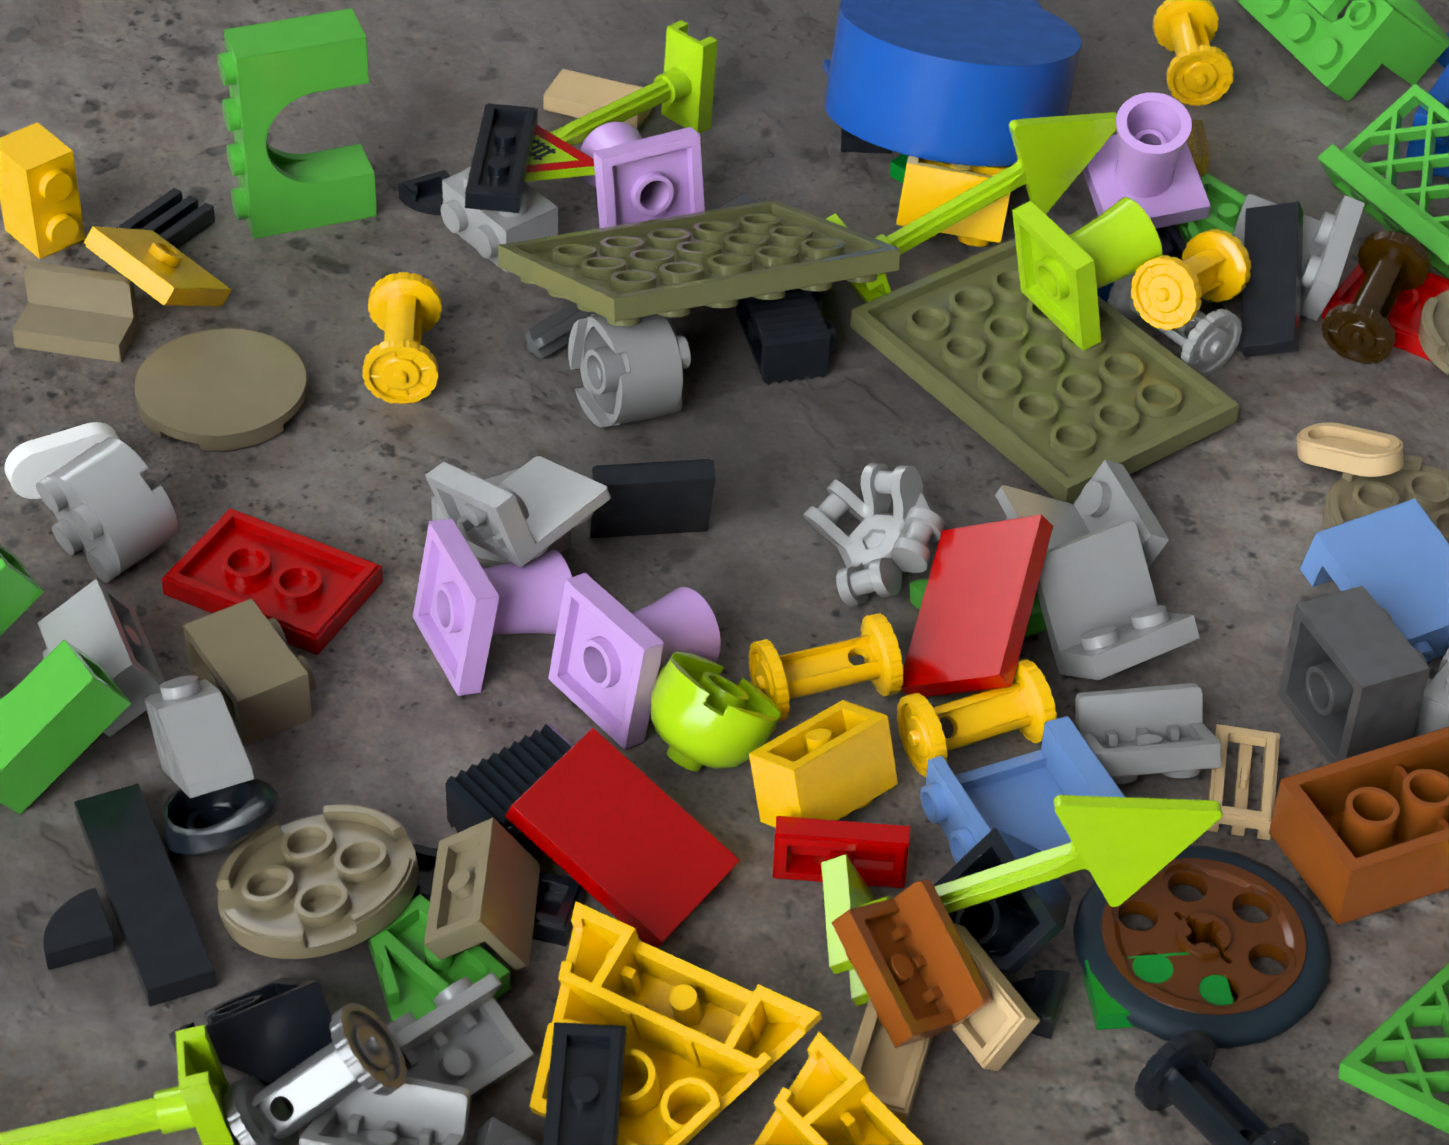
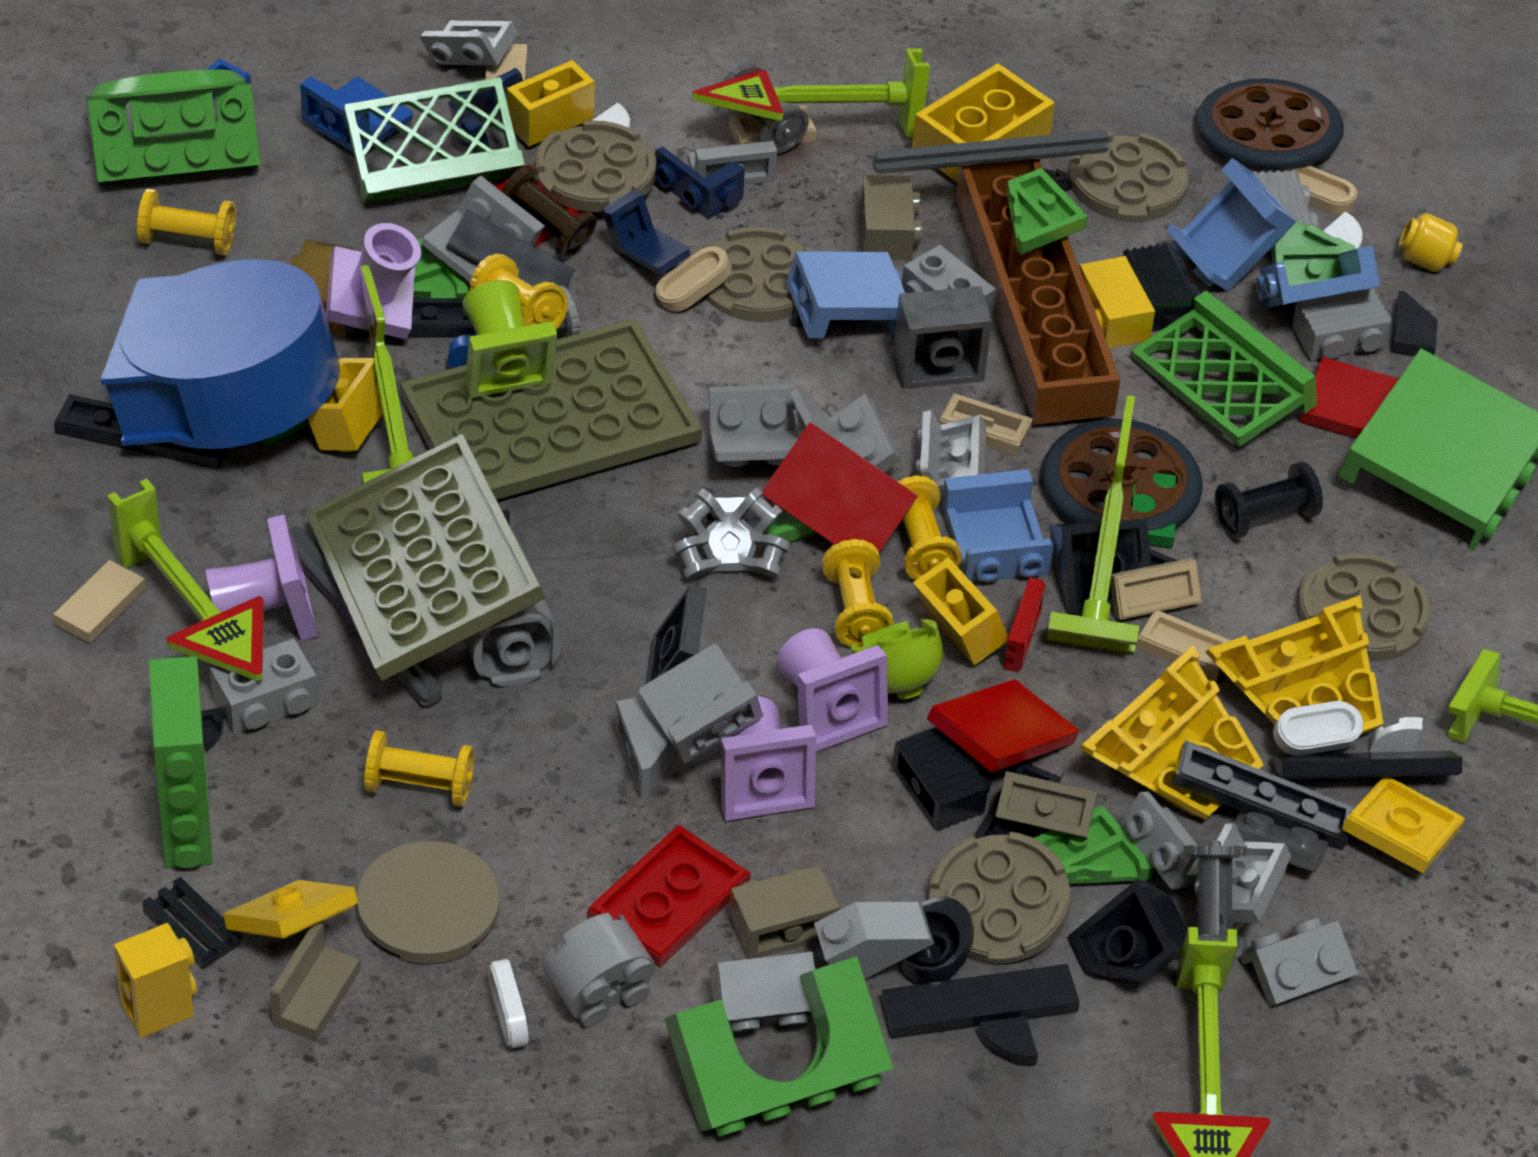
camera: 80 degrees left, 5 degrees up
(501, 158) = (248, 649): black tile -> none
(912, 964) = (1151, 595): dark orange bracket -> none
(1402, 385) = (638, 239): none -> dark blue bracket

